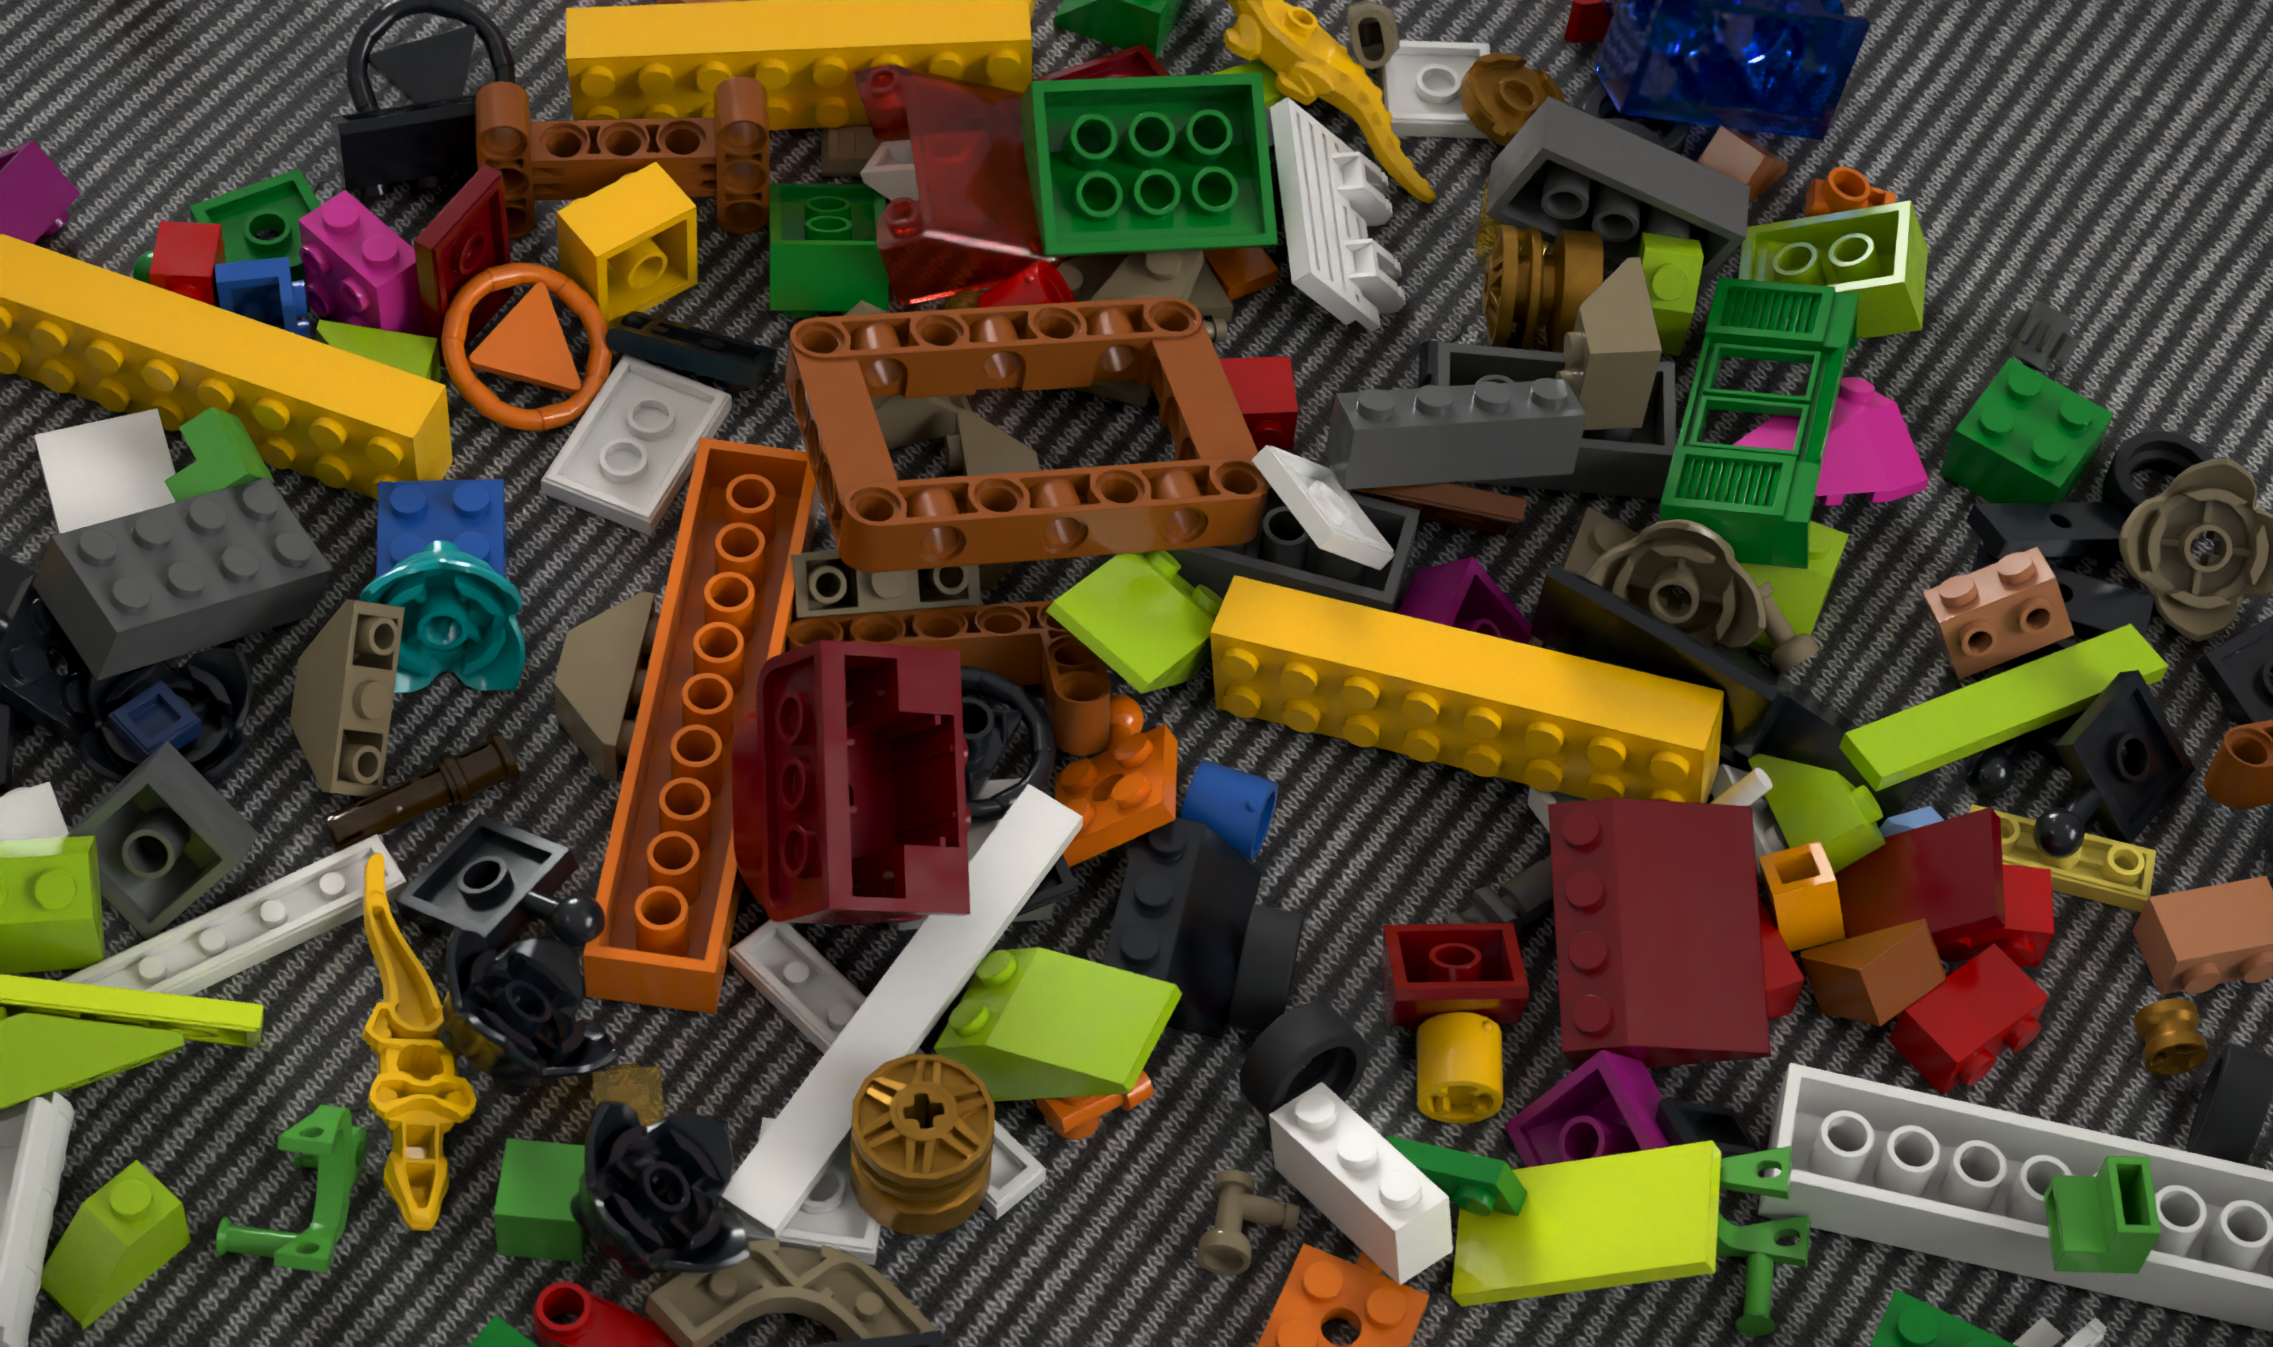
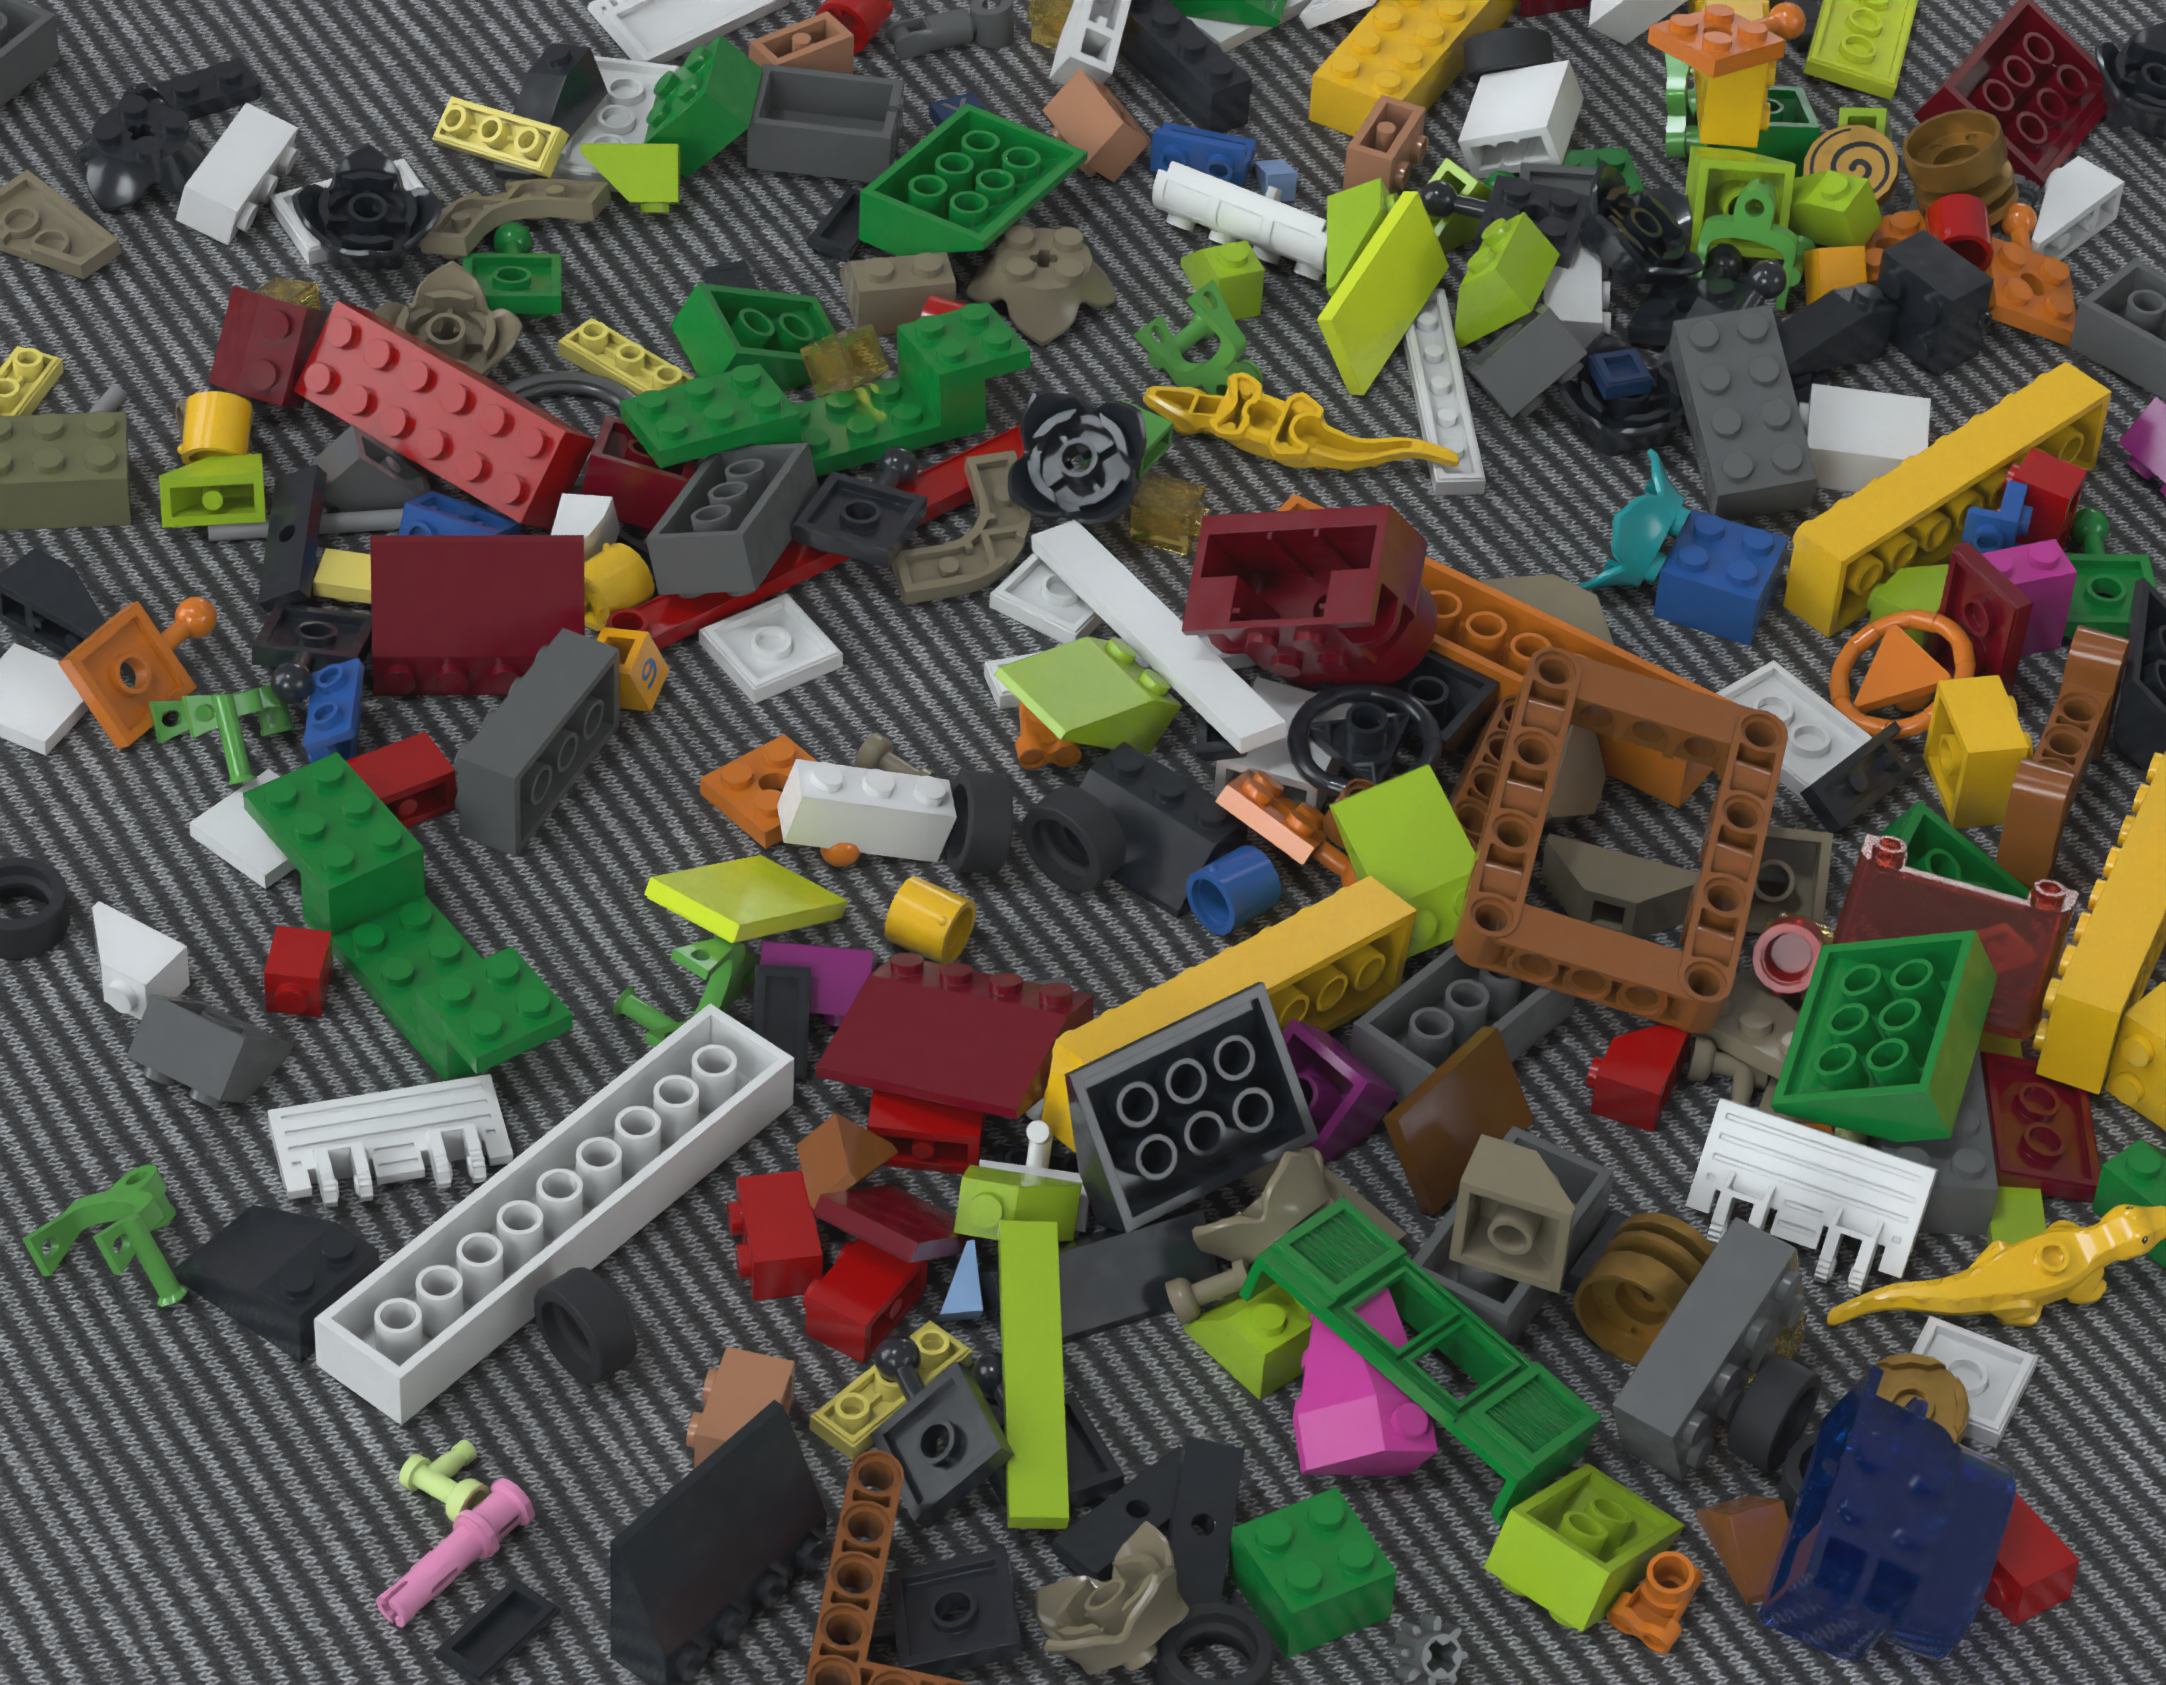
camera: 120 degrees right, 10 degrees down
(222, 454) = (1844, 458): bright green piece -> none
(347, 697) = (1587, 474): dark tan slope -> none
(450, 781) = (1509, 525): dark brown pin -> none
(518, 1012) = (1247, 425): black brick -> none
(520, 880) = (1402, 487): black plate -> none
(914, 1175) = (1037, 594): pearl gold wheel -> none
(1323, 507) = (1446, 973): white tile -> none
(1372, 33) = (2029, 1319): dark tan piece -> none
(1452, 970) = (995, 915): dark red slope -> none
(1454, 433) = (1476, 1074): dark grey brick -> none
(1468, 1179) = (840, 864): green plate -> none
(1672, 279) = (1600, 1350): lime slope -> none
(1802, 896) = (938, 1157): light orange brick -> none
(1998, 612) = (1128, 1419): nougat brick -> none
(2103, 1219) = (533, 1138): bright green piece -> none
(2171, 1037) = (679, 1351): pearl gold wheel -> none

